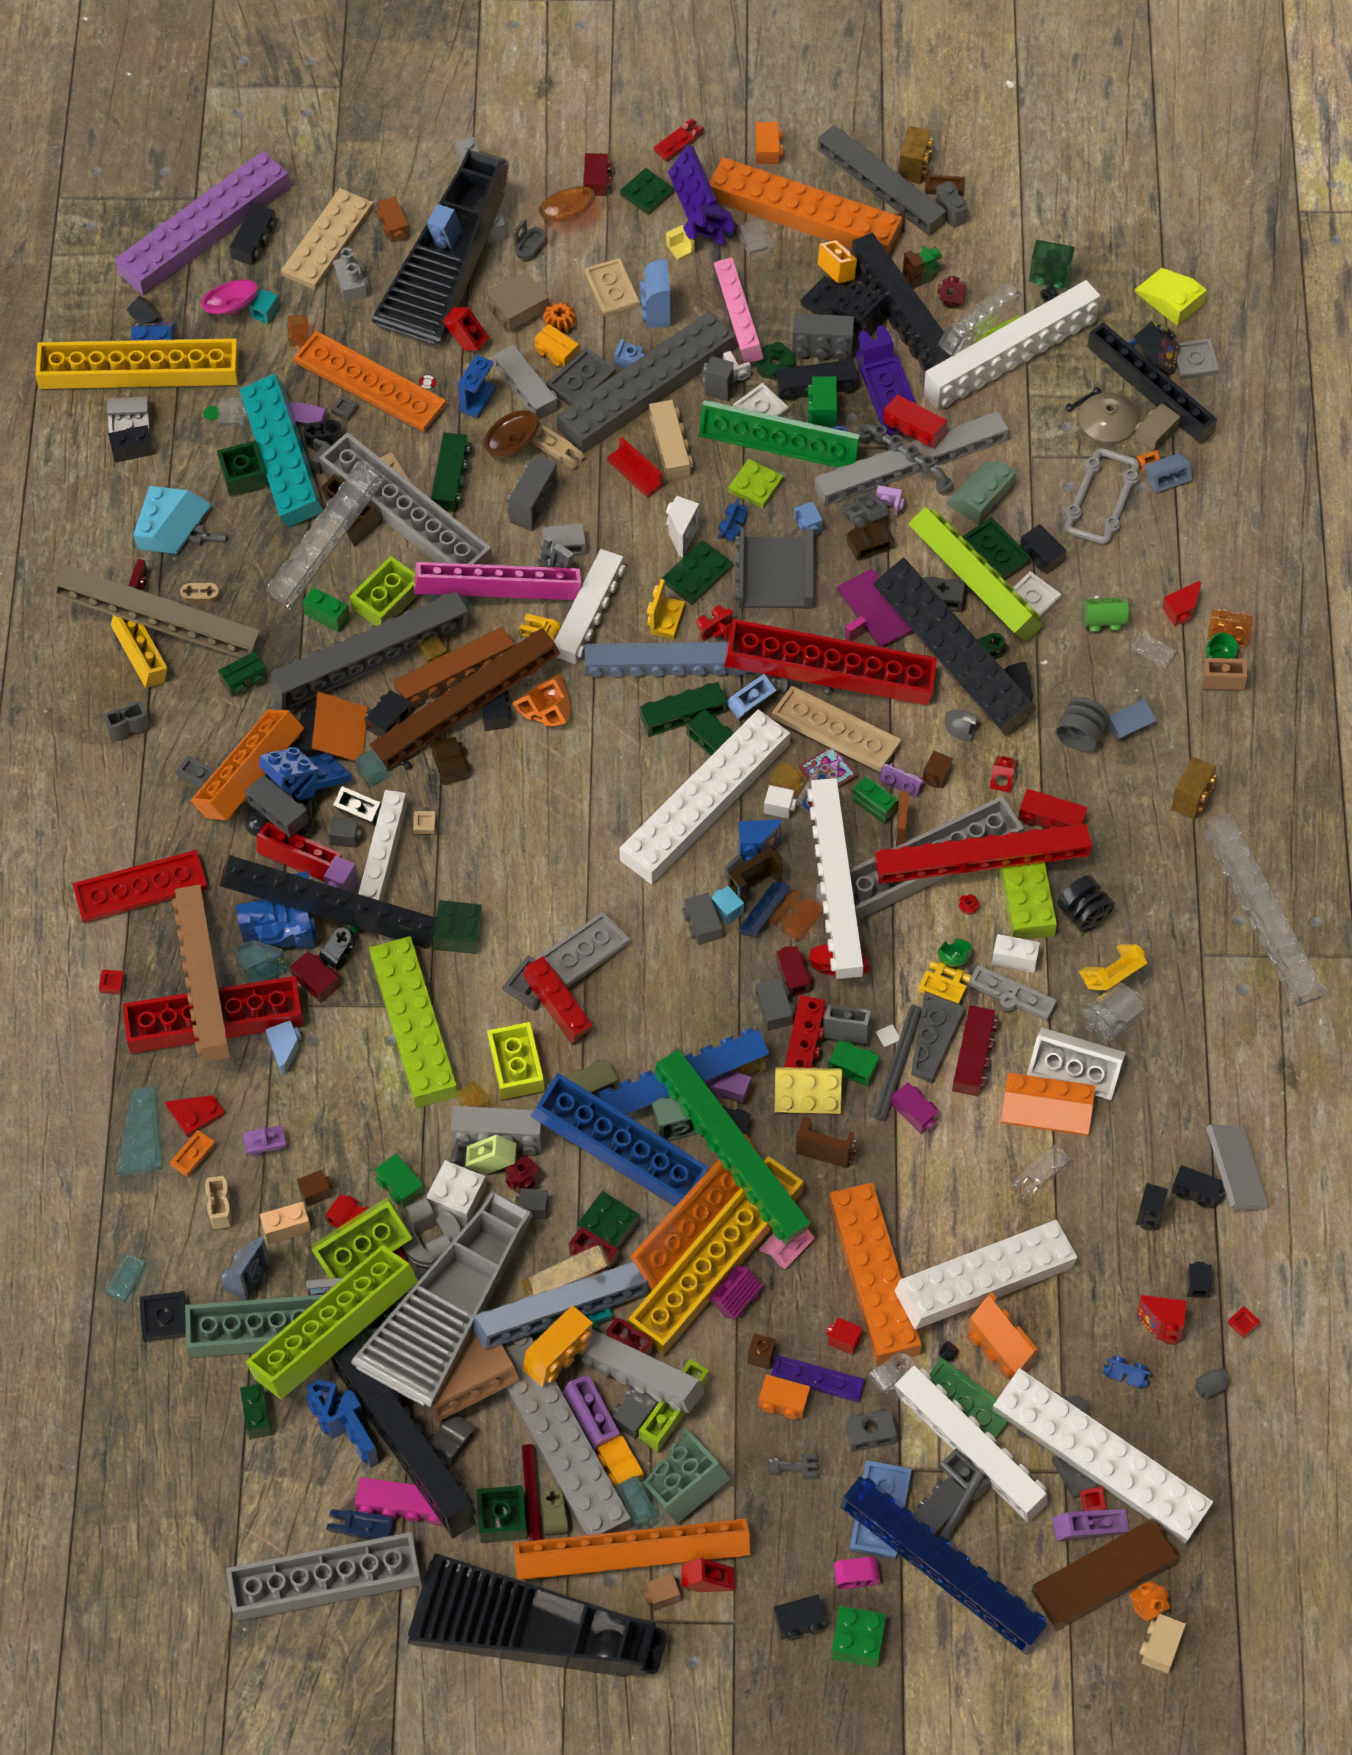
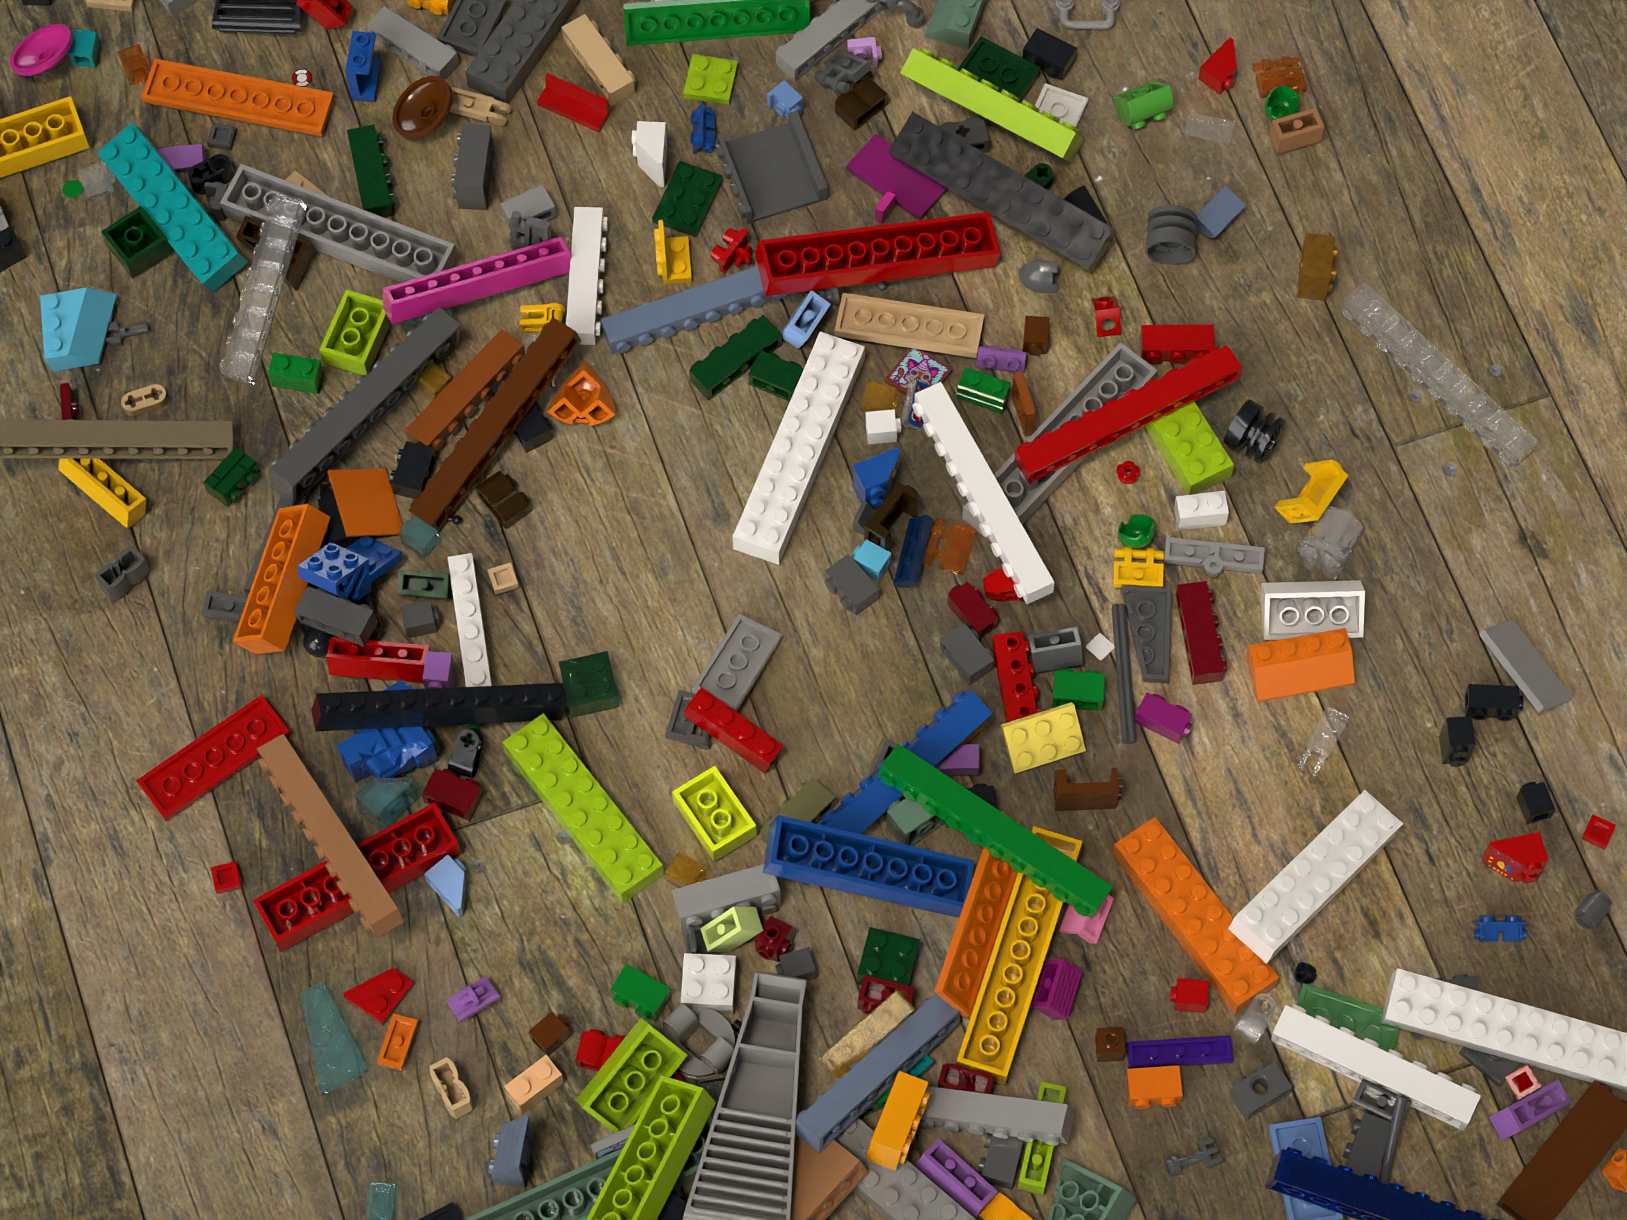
camera: 20 degrees left, 5 degrees up
(1000, 1340) = (1360, 942): orange wedge -> none

